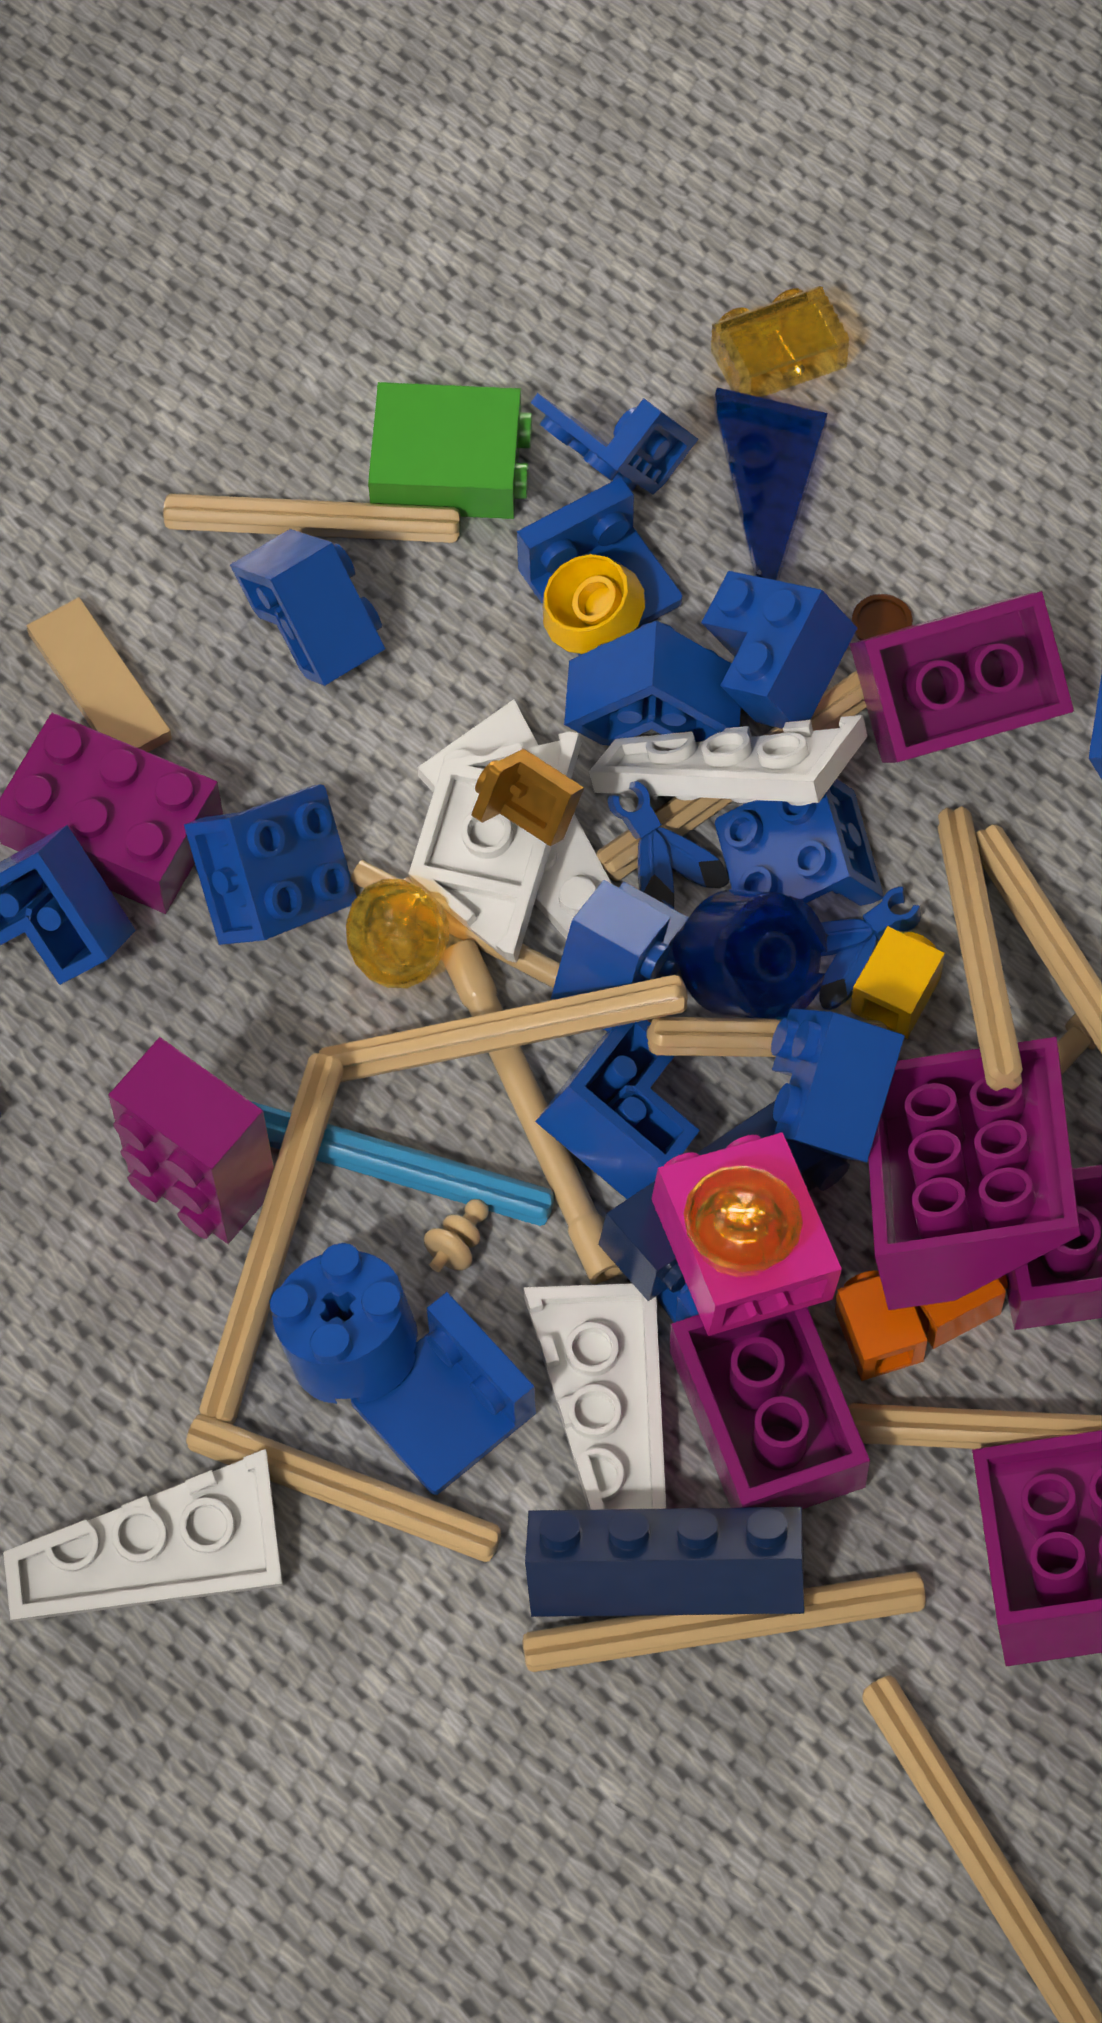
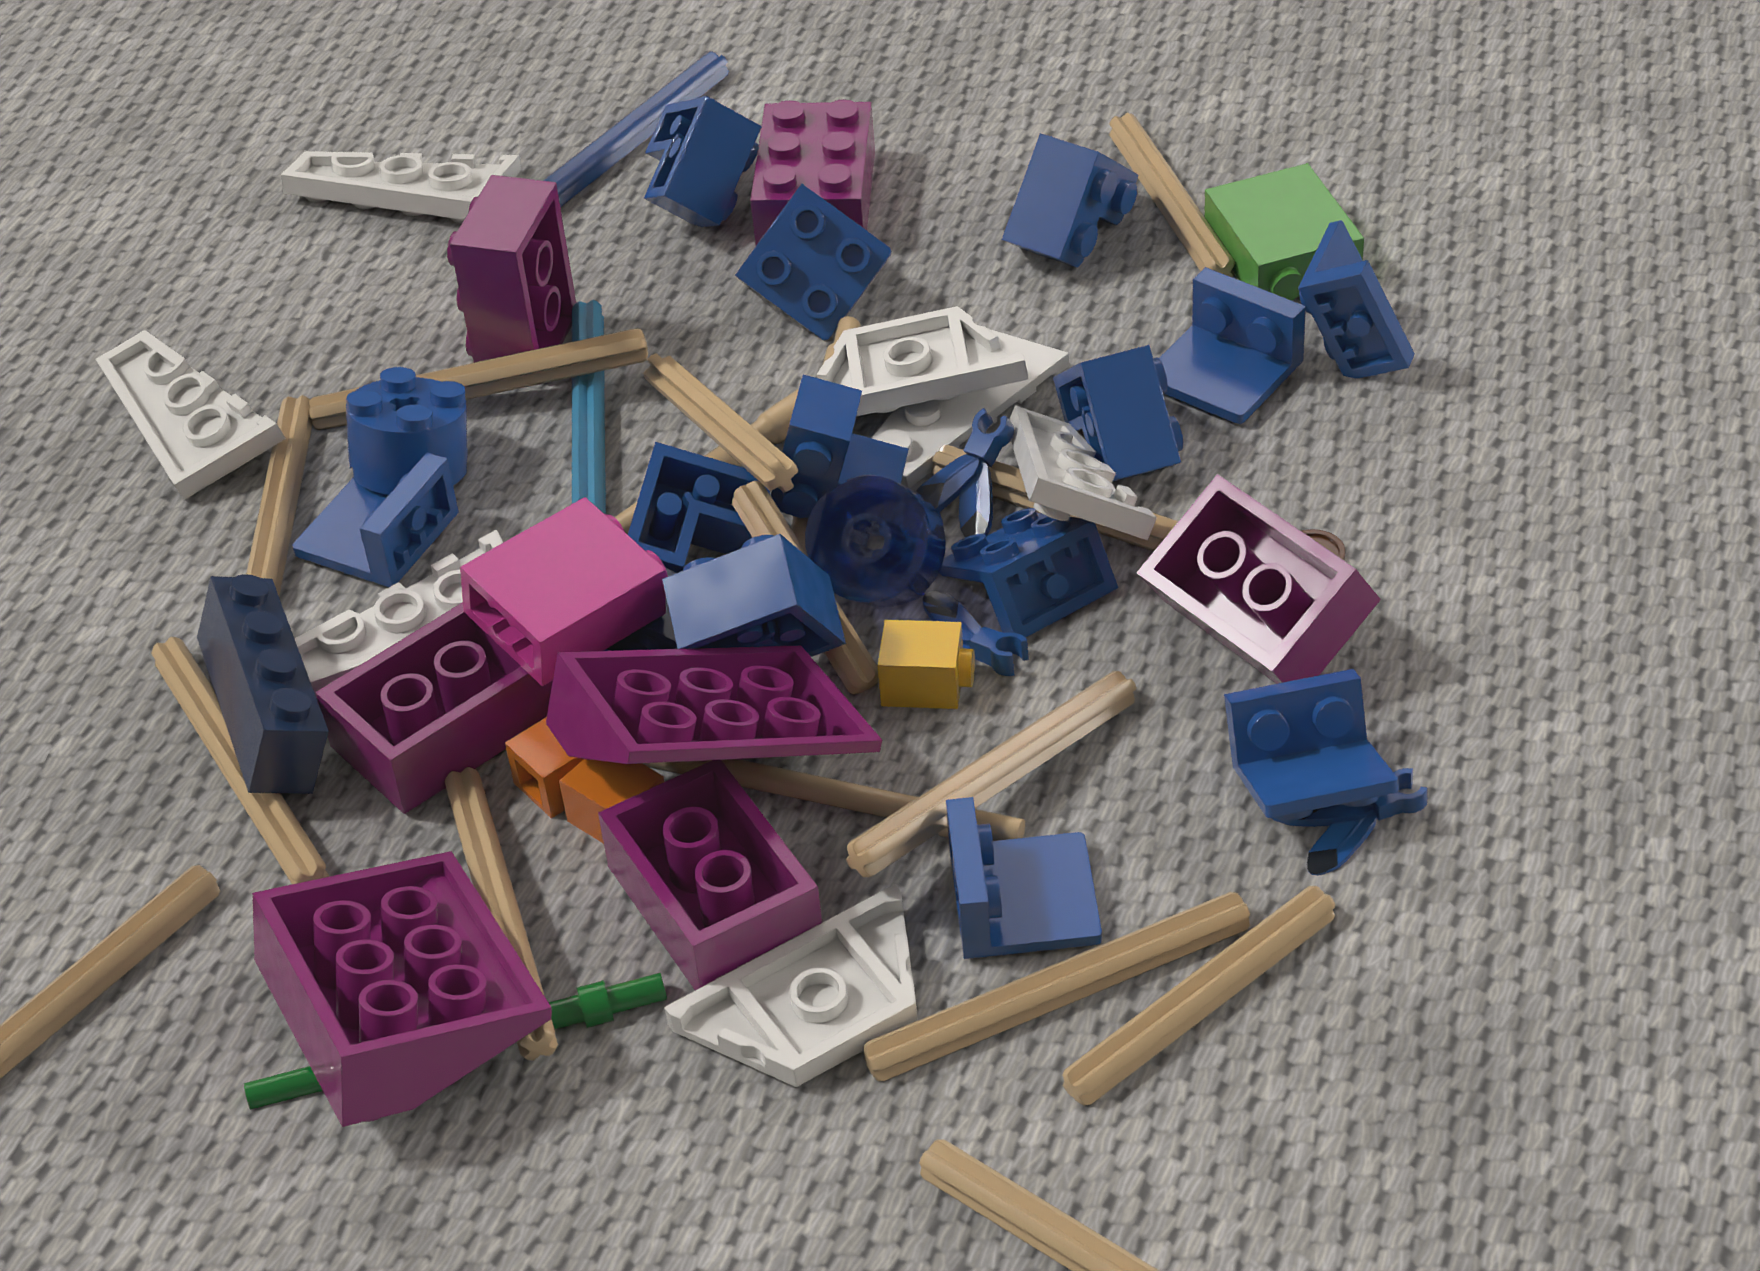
camera: 70 degrees right, 20 degrees down
(97, 677) = (940, 145): tan tile -> none
(396, 933) = (793, 352): clear yellow hat -> none
(459, 1233) = (538, 486): tan hair -> none
(528, 795) = (937, 329): pearl gold bracket -> none
(592, 587) = (1189, 347): yellow hat -> none
(742, 1220) = (542, 548): hat -> none
(770, 464) = (1411, 427): clear blue wing -> none
(780, 343) = (1551, 385): clear yellow brick -> none
(782, 643) = (1177, 461): blue brick -> none
(979, 950) = (960, 679): tan axle -> none

